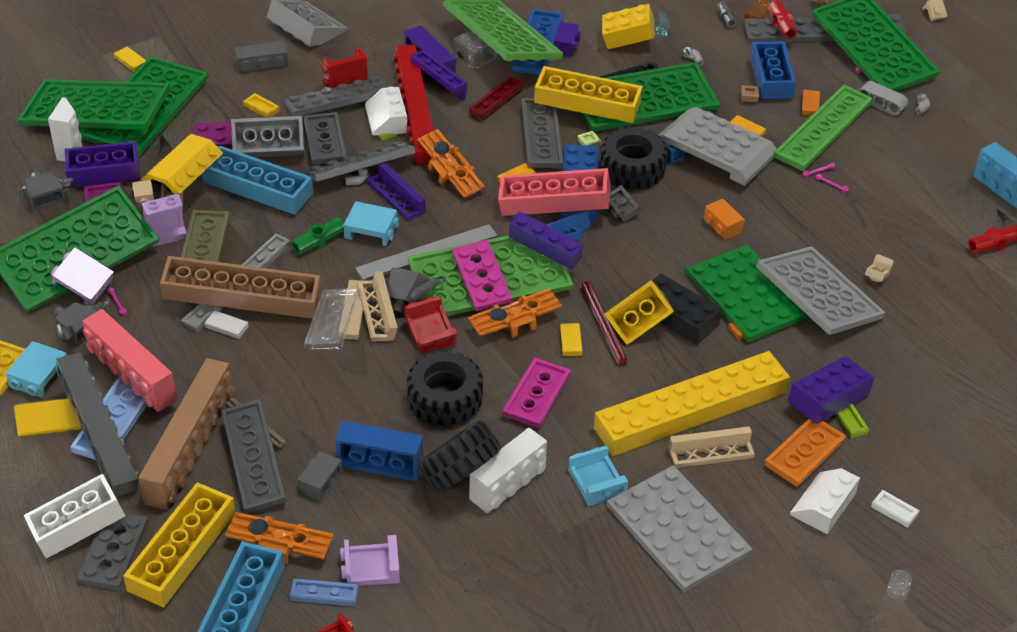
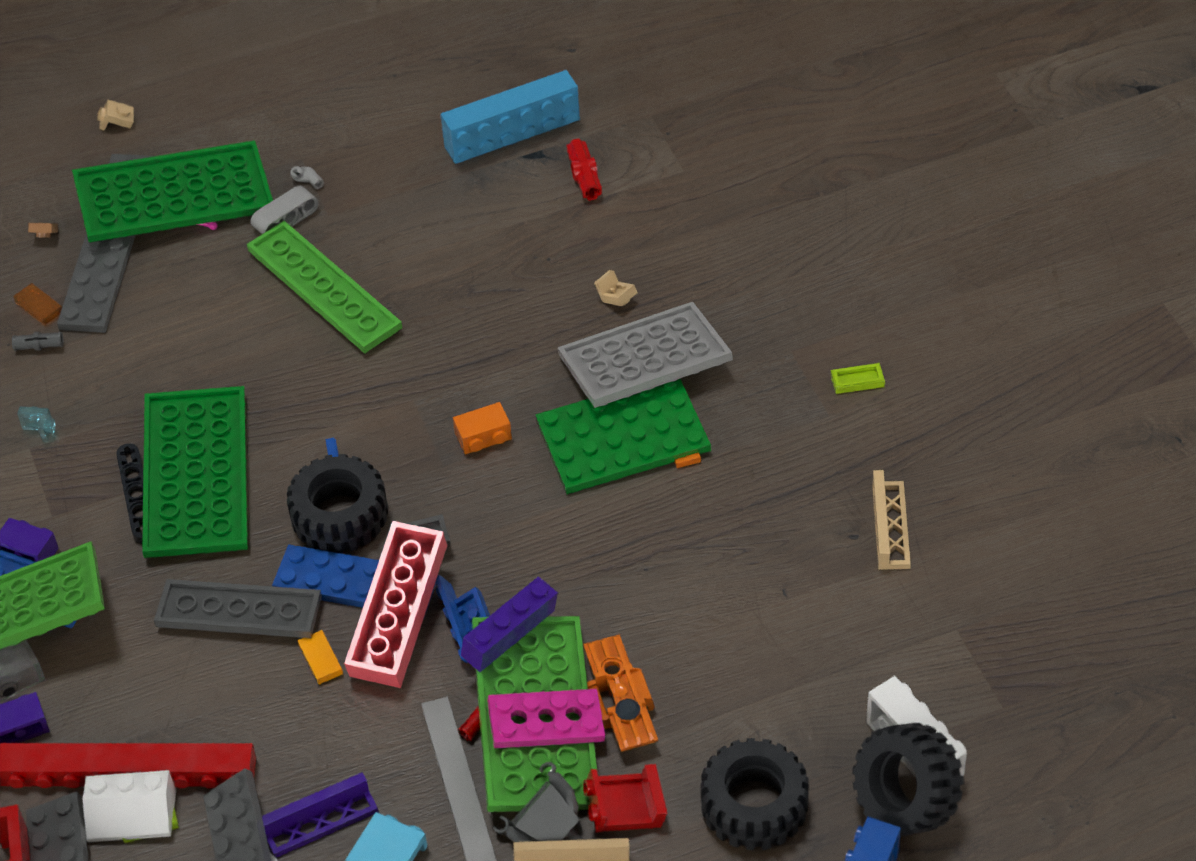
camera: 75 degrees left, 5 degrees up
(440, 73) = (63, 717): dark purple fence -> none
(443, 161) = (288, 736): orange piece -> none
(496, 97) = (135, 656): dark red plate -> none
(532, 382) = (767, 708): dark pink plate -> none
(571, 339) = (671, 640): yellow tile -> none
(588, 94) = (193, 529): yellow brick -> none
(589, 139) = (265, 555): yellowish green tile -> none
(596, 475) = (923, 649): medium azure panel -> none
(604, 323) = (646, 598): dark red axle -> none
(628, 26) = (38, 456): yellow brick -> none
(639, 312) = (663, 544): yellow slope -> none
(679, 528) = (1009, 580): light grey plate -> none
(691, 403) = (817, 528): yellow brick -> none
(692, 315) = (645, 508): black brick -> none
(694, 55) = (117, 396): light grey arm -> none
(720, 143) = (329, 404): light grey slope -> none
(748, 125) = (296, 369): light orange tile -> none
(749, 93) = (227, 350): medium nougat plate -> none
(772, 70) = (193, 311): blue brick -> none
(783, 19) = (90, 275): red piece -> none
(804, 451) = (906, 430): orange plate -> none
(806, 174) = (407, 326): dark pink hinge -> none
(810, 102) = (264, 290): orange tile -> none
(826, 499) = (985, 425): white slope -> none
(830, 389) = (822, 379): dark purple brick -> none
(844, 189) = (448, 294): dark pink hinge -> none
(895, 508) = (1000, 368): white tile -> none
(899, 585) = (1118, 387): clear wheel -> none

